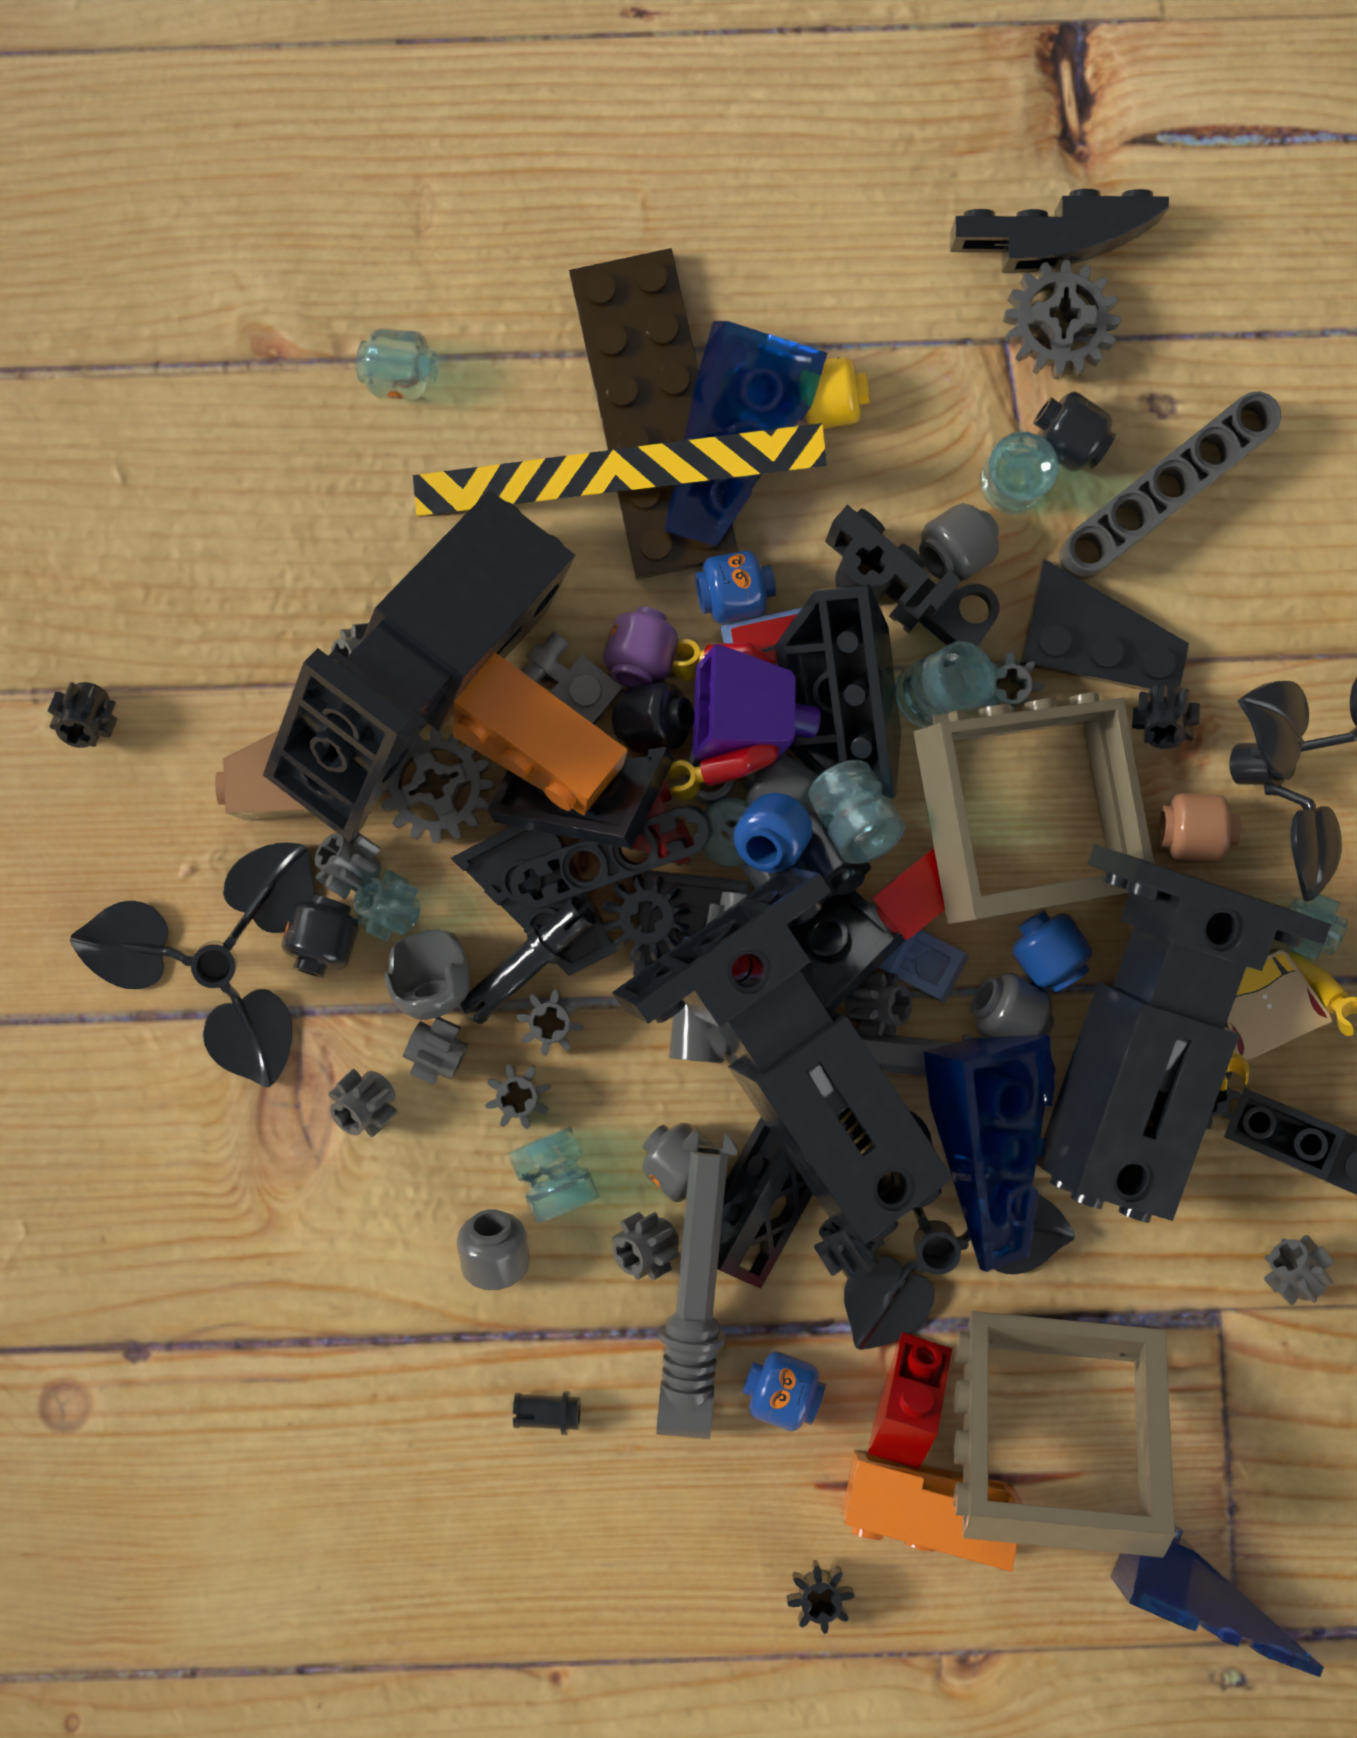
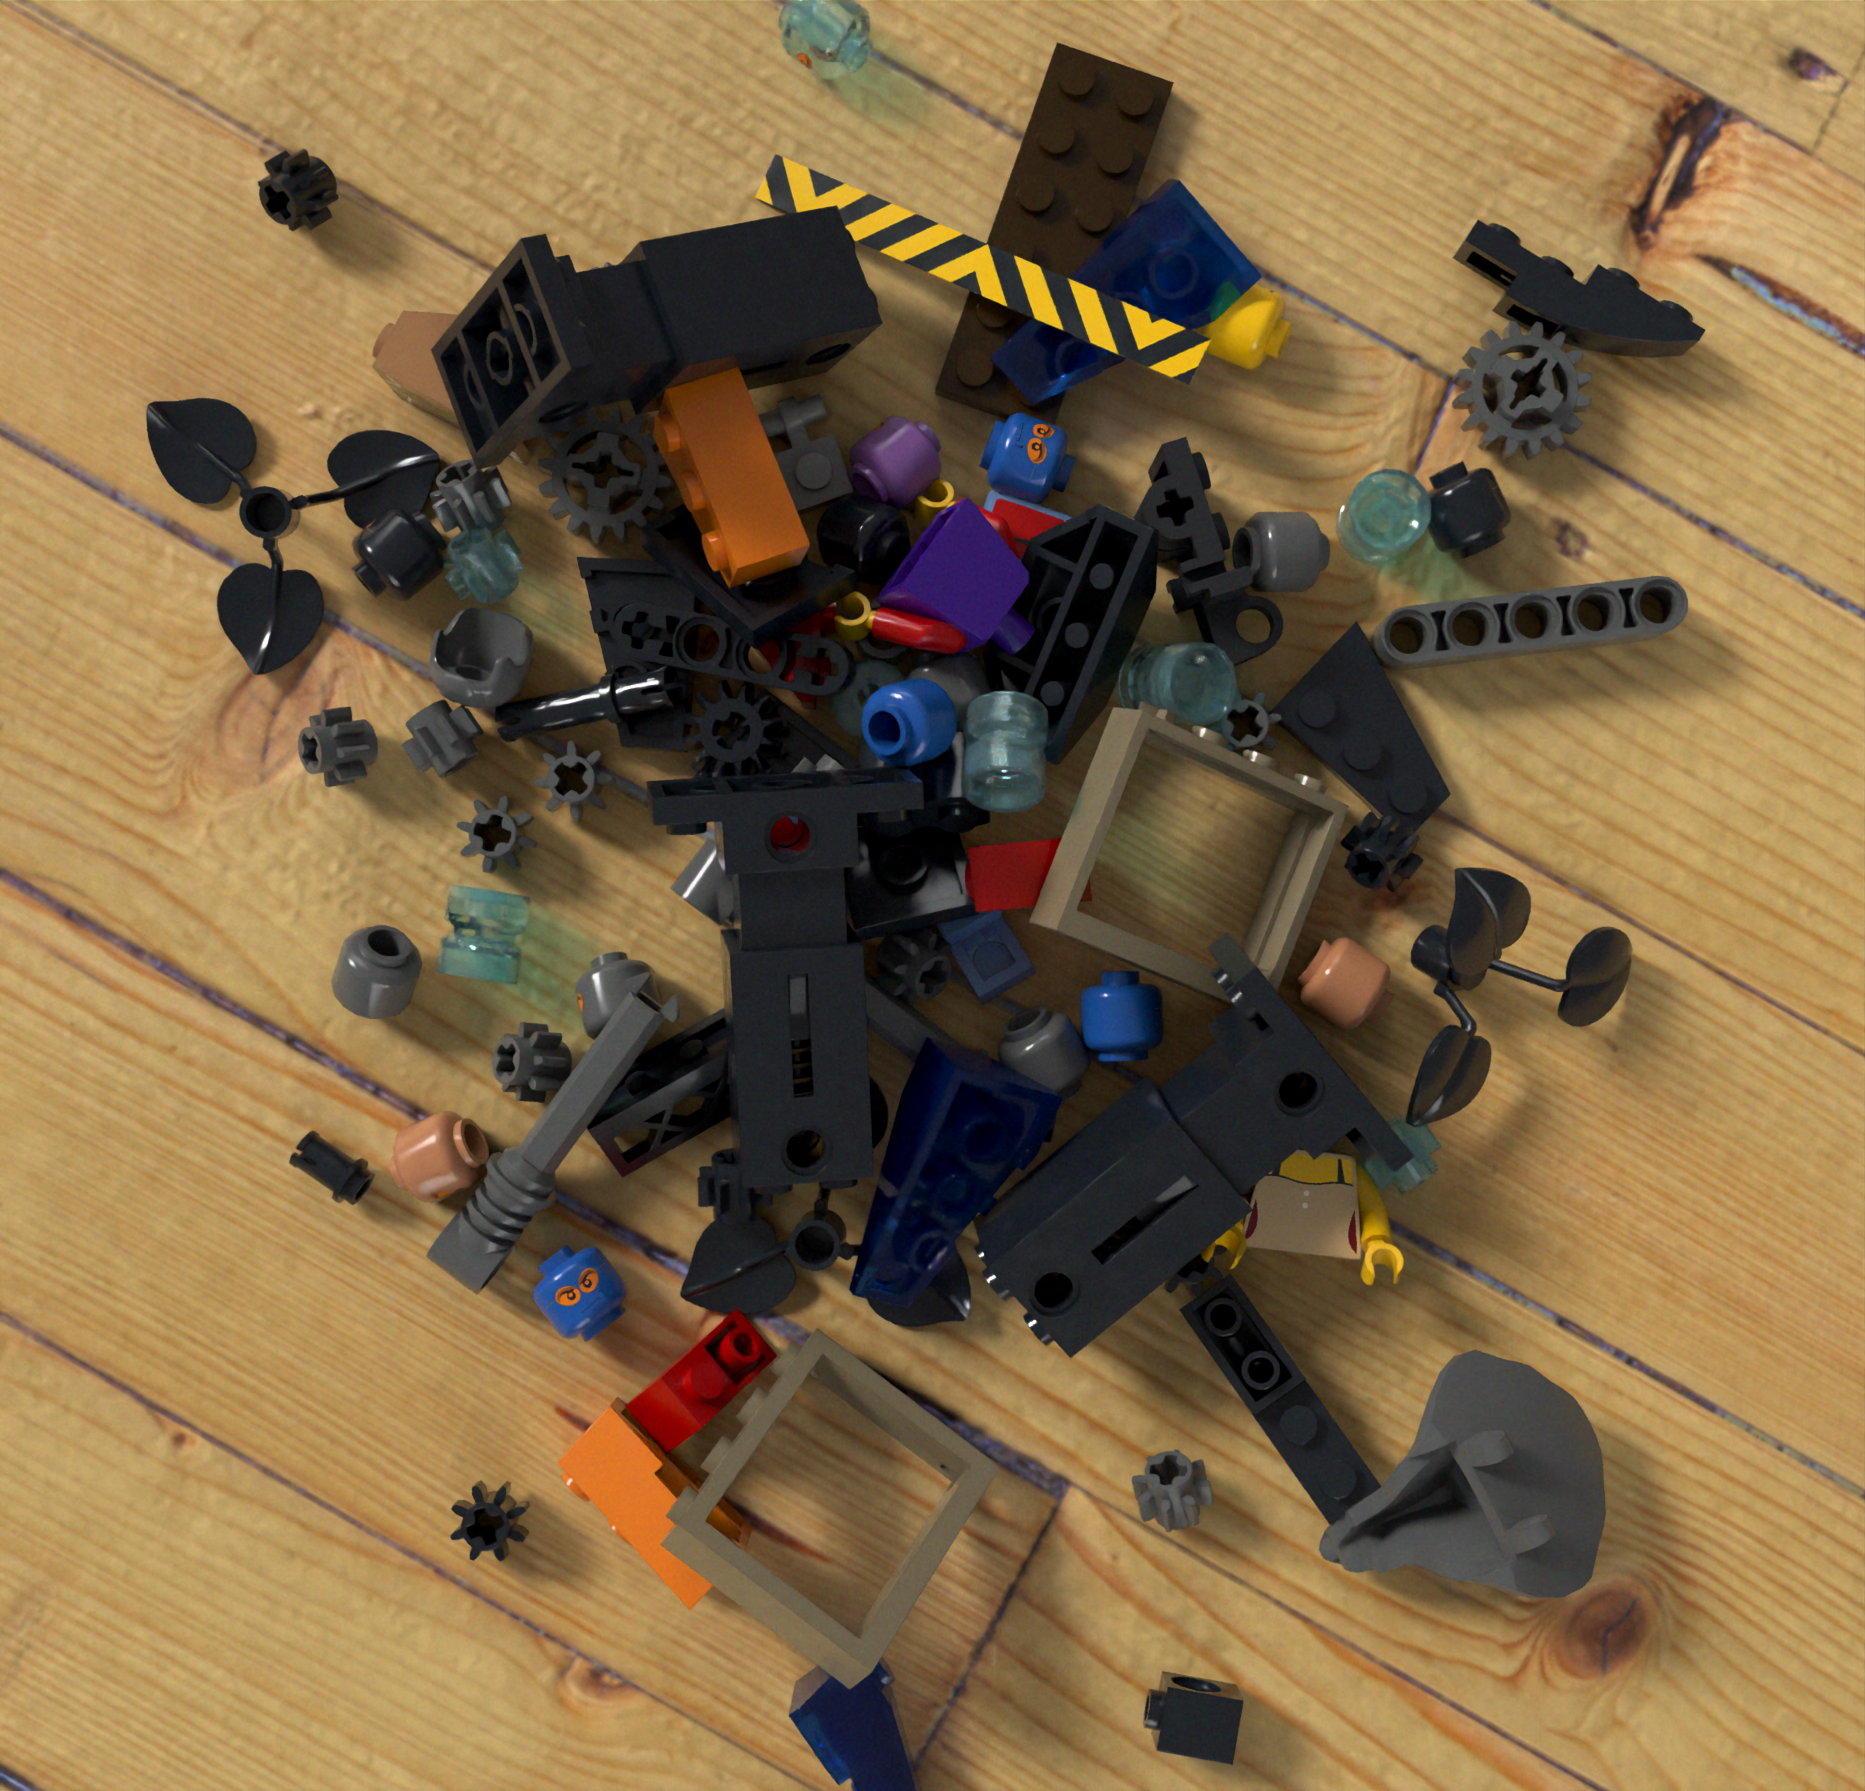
camera: 30 degrees right, 0 degrees up
(620, 1356) = (439, 1156): none -> nougat head

